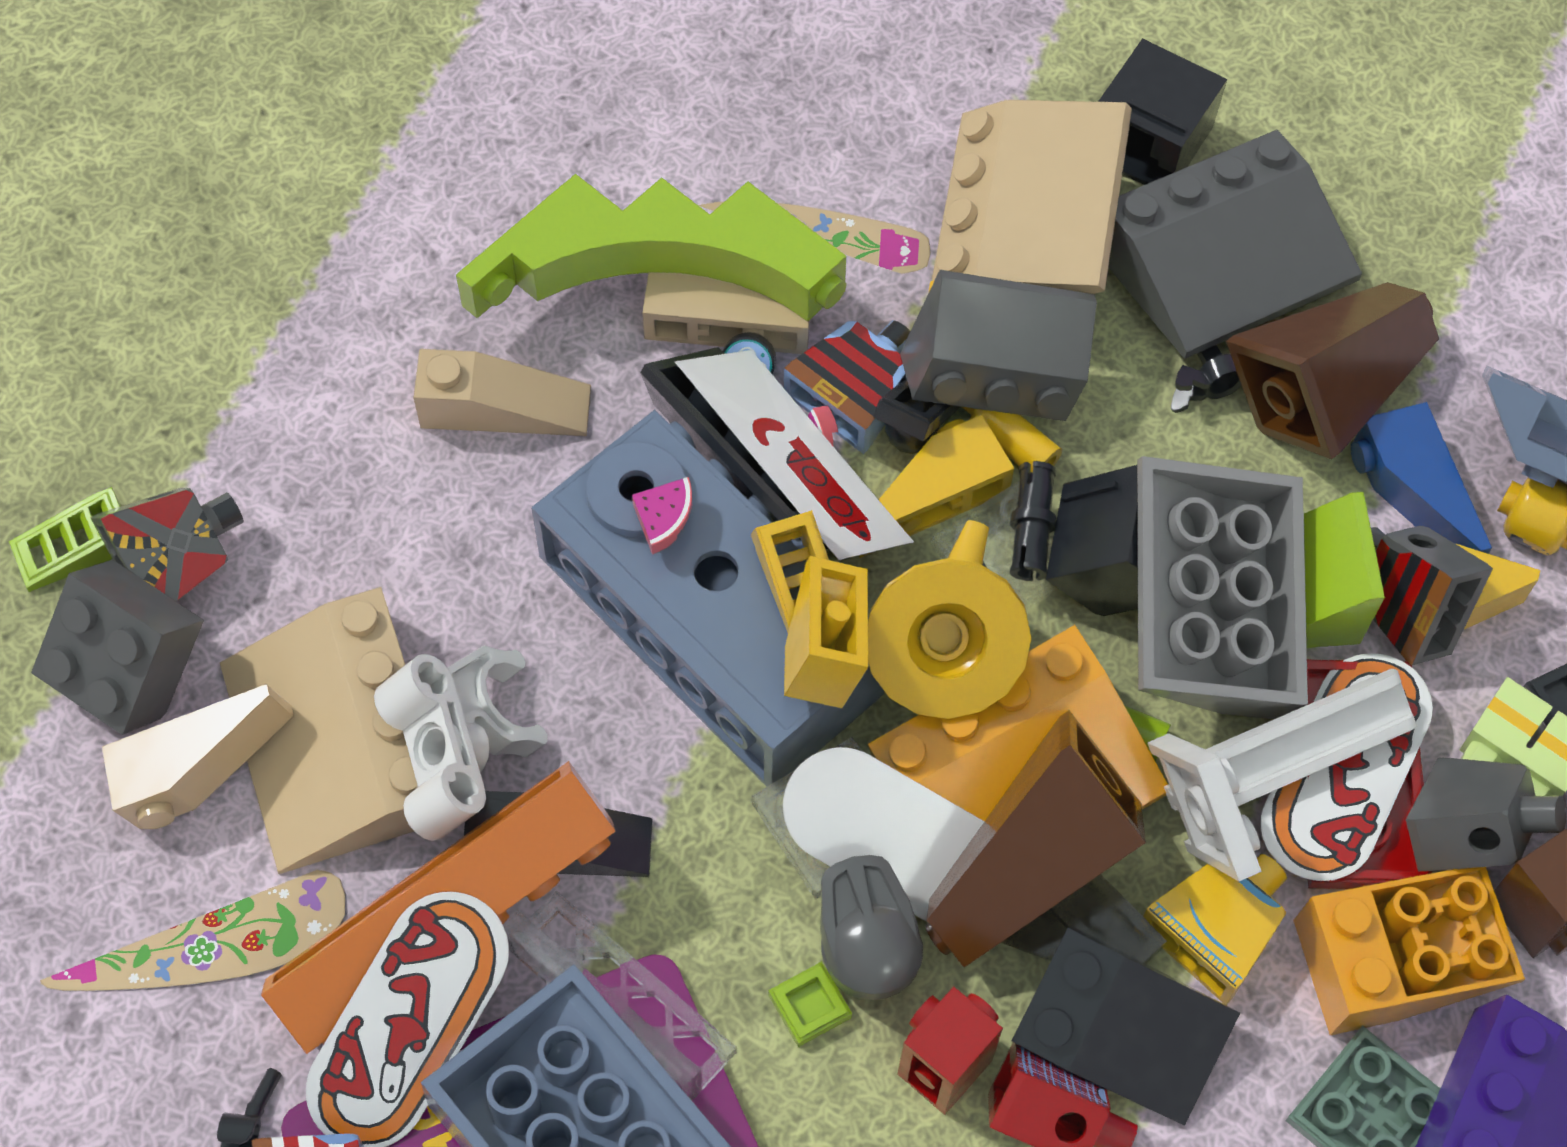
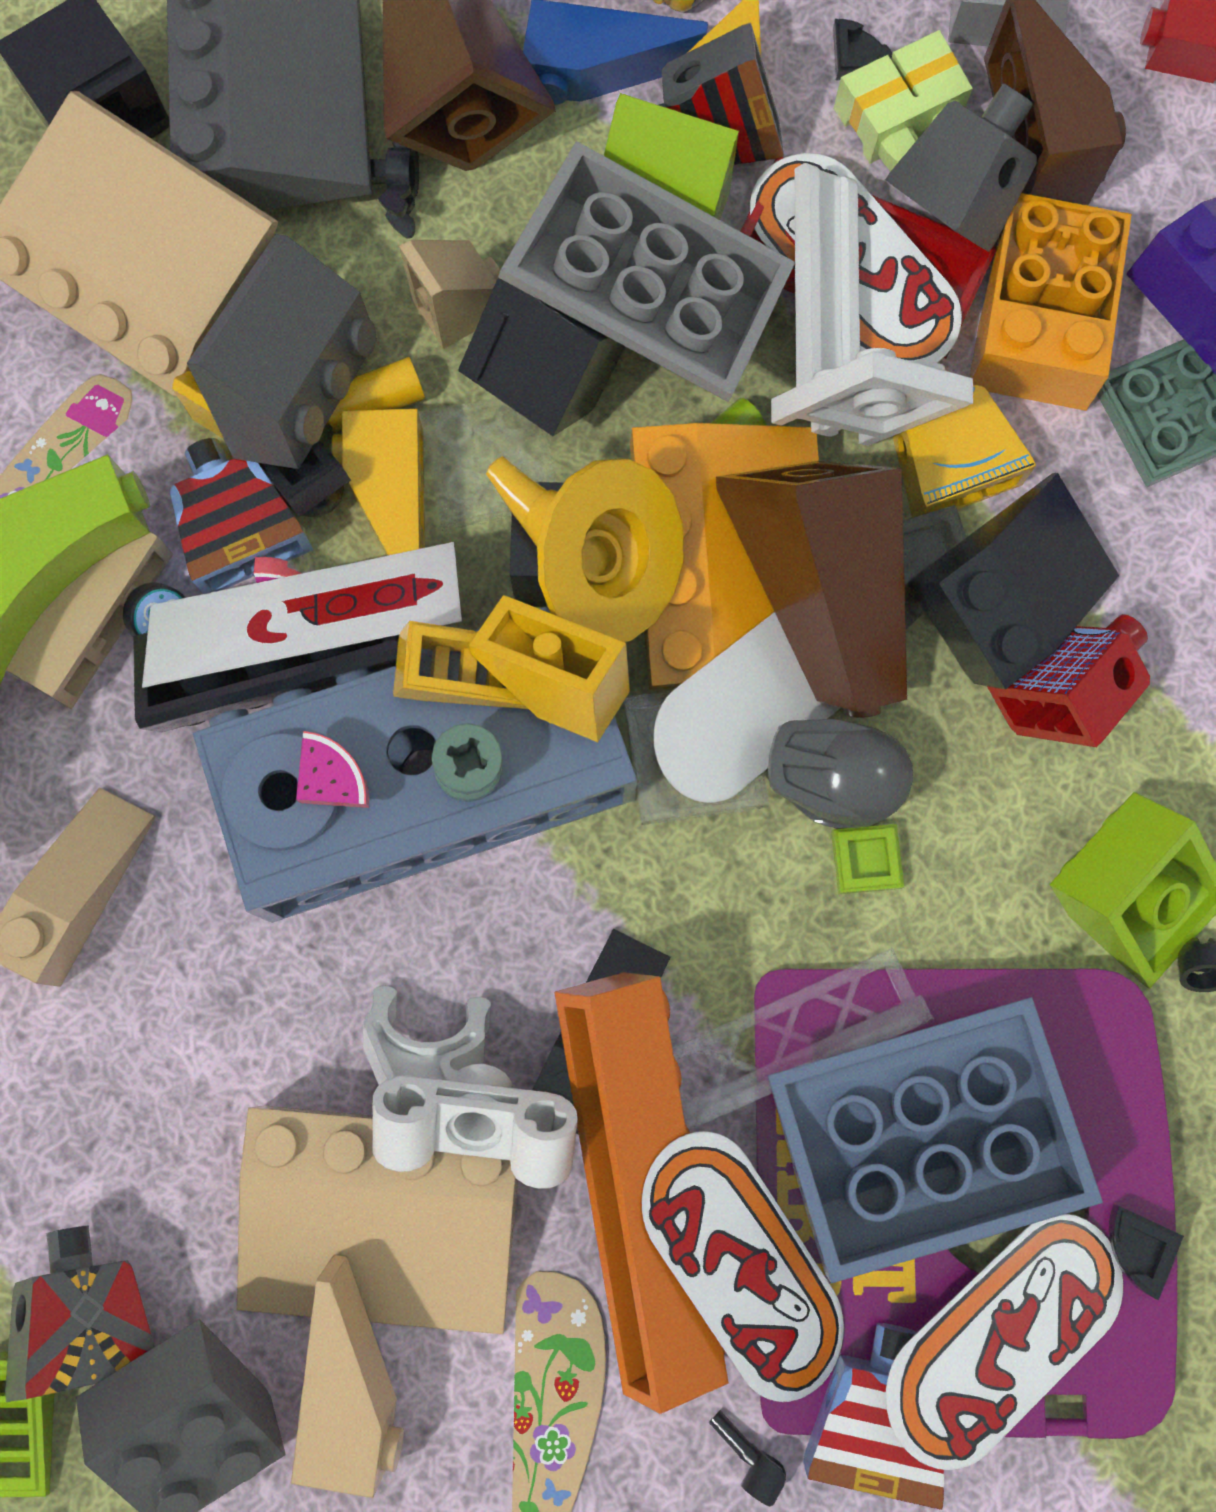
camera: 65 degrees left, 15 degrees up
(718, 620) = (464, 776): none -> sand green wheel
(949, 1047) = (988, 747): red brick -> none
(1033, 521) = (482, 418): black pin -> none
(1133, 432) = (448, 285): none -> tan slope

